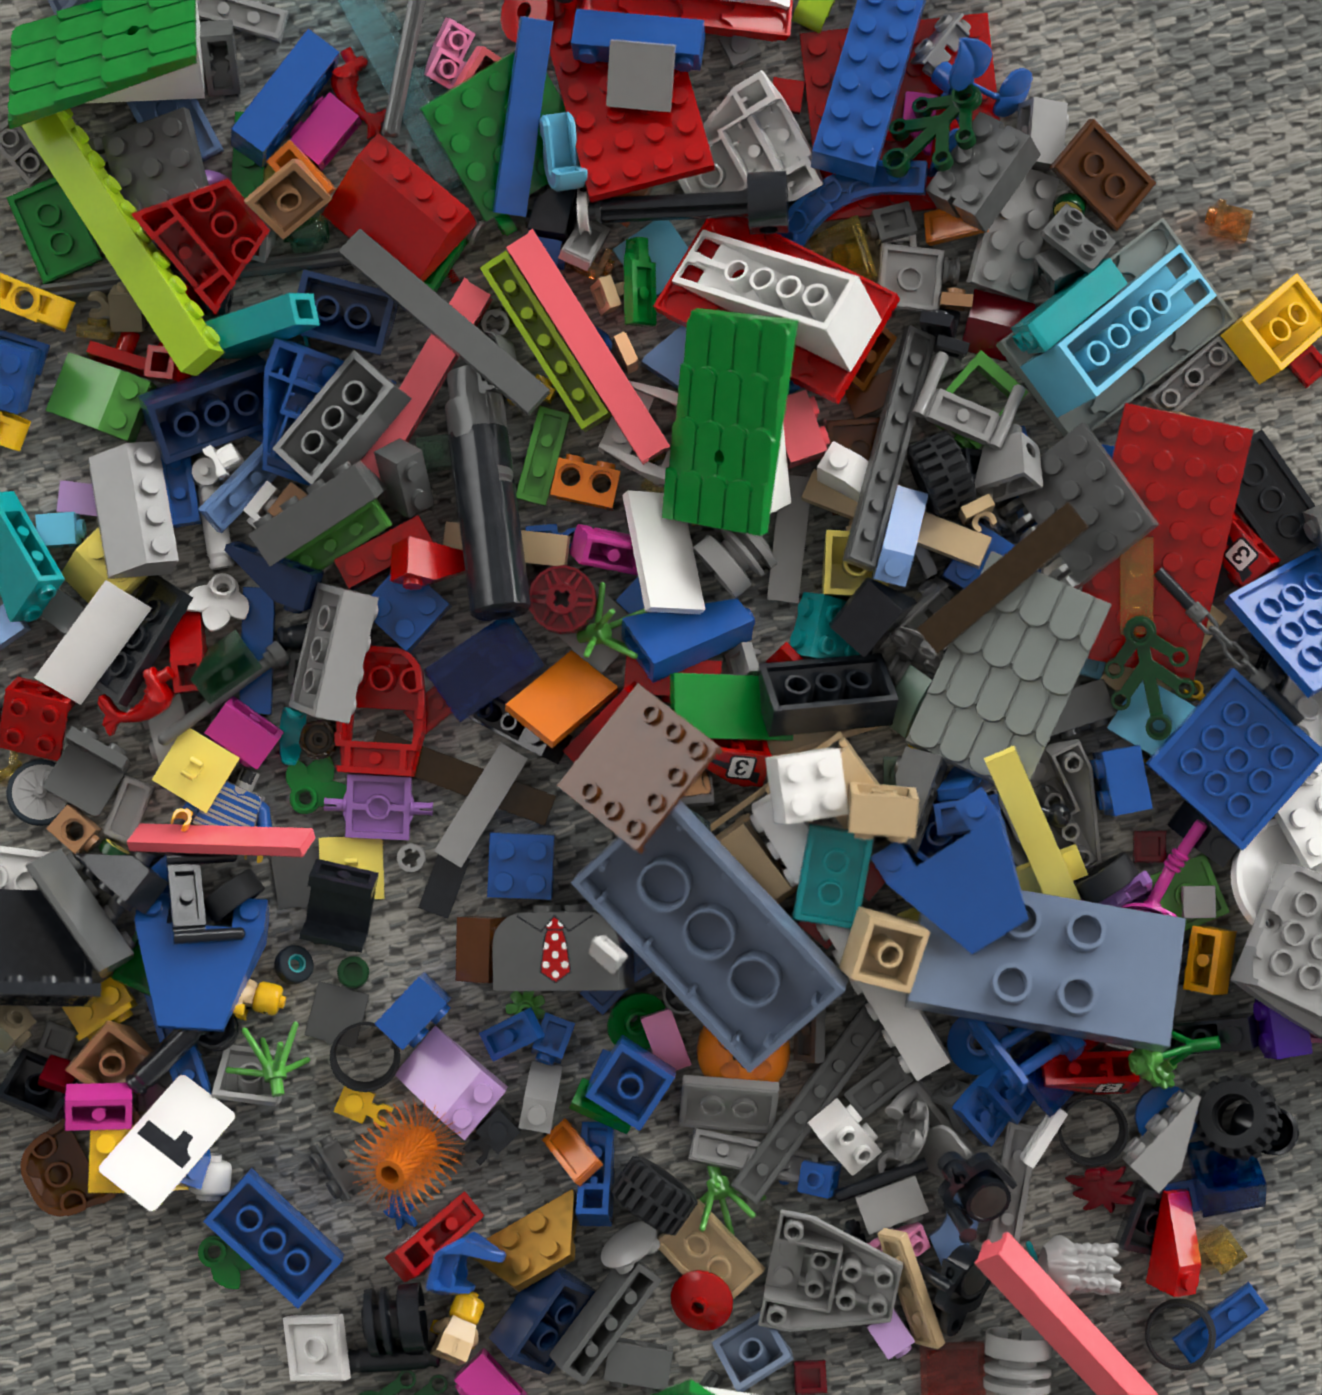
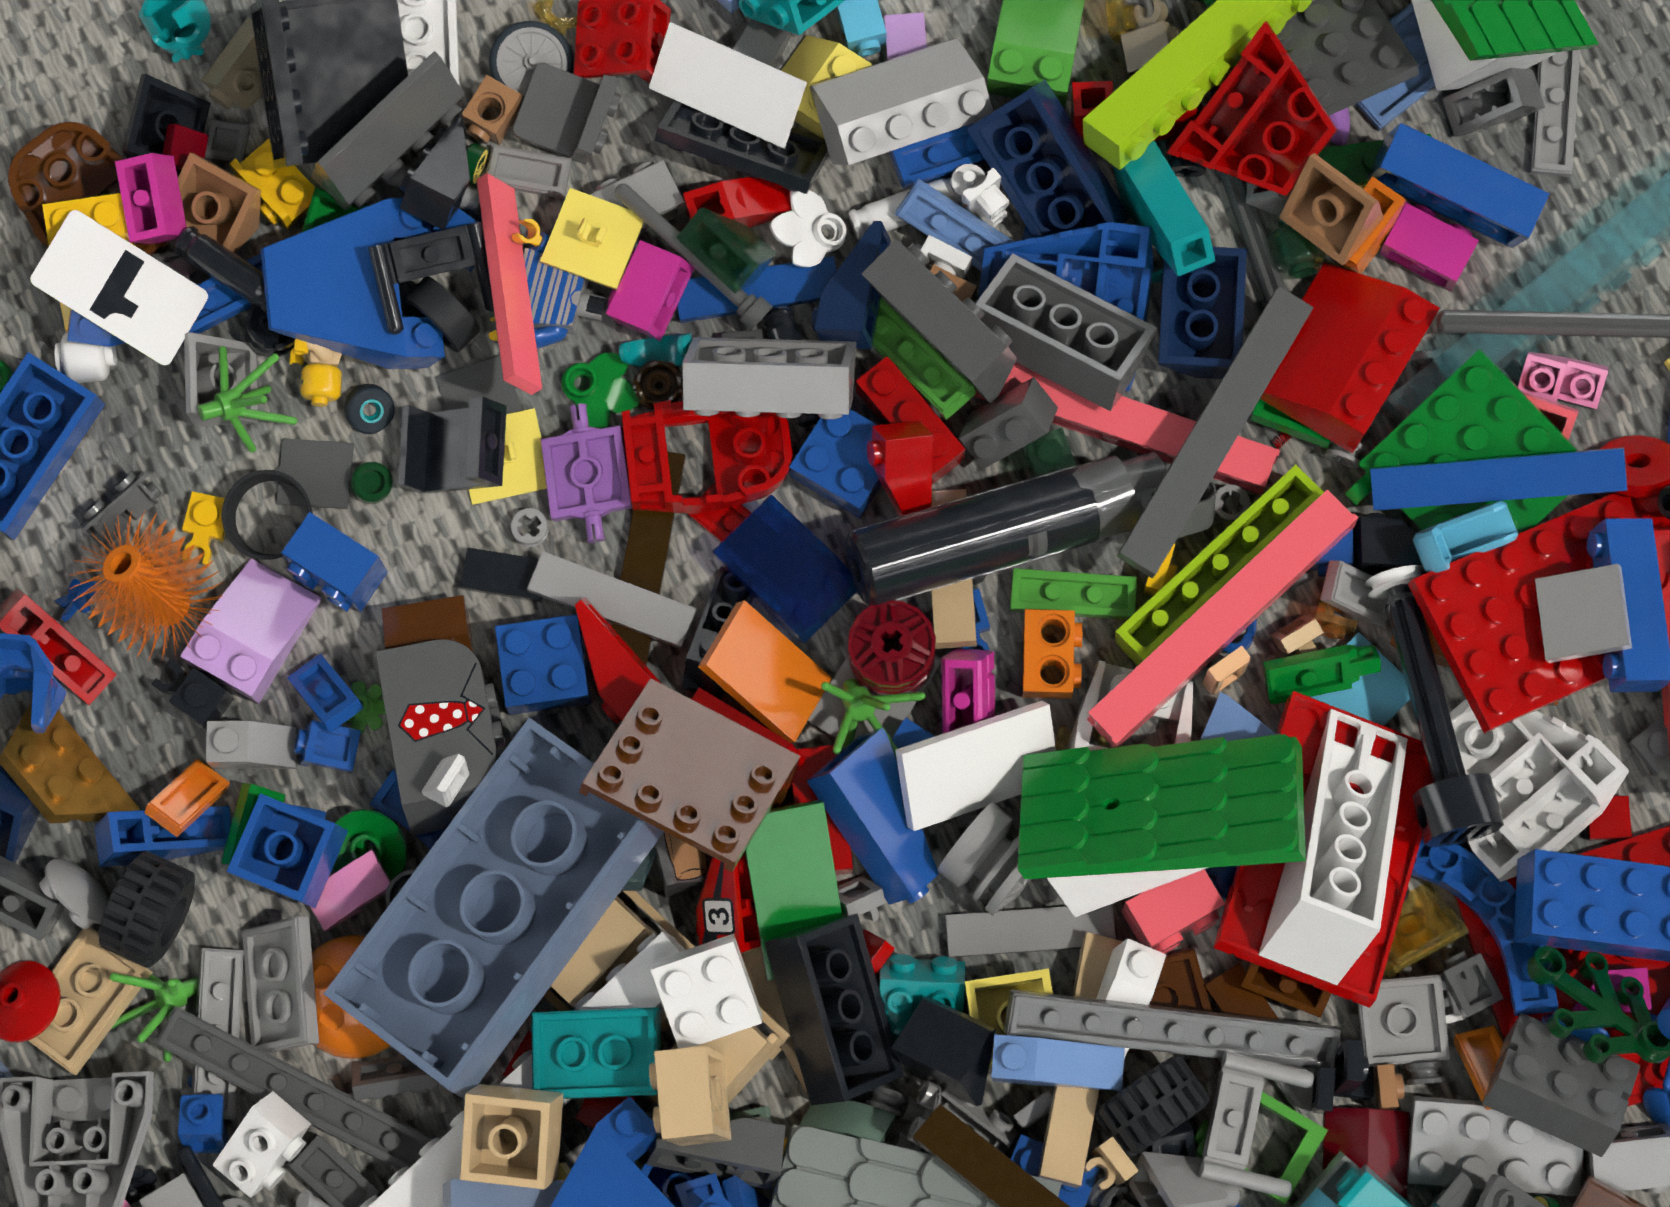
camera: 85 degrees right, 10 degrees down
(121, 356) = (1093, 55): red tile -> none
(155, 701) = (666, 173): red animal -> none
(344, 86) = (1492, 259): red animal -> none
(539, 809) = (615, 666): none -> red slope

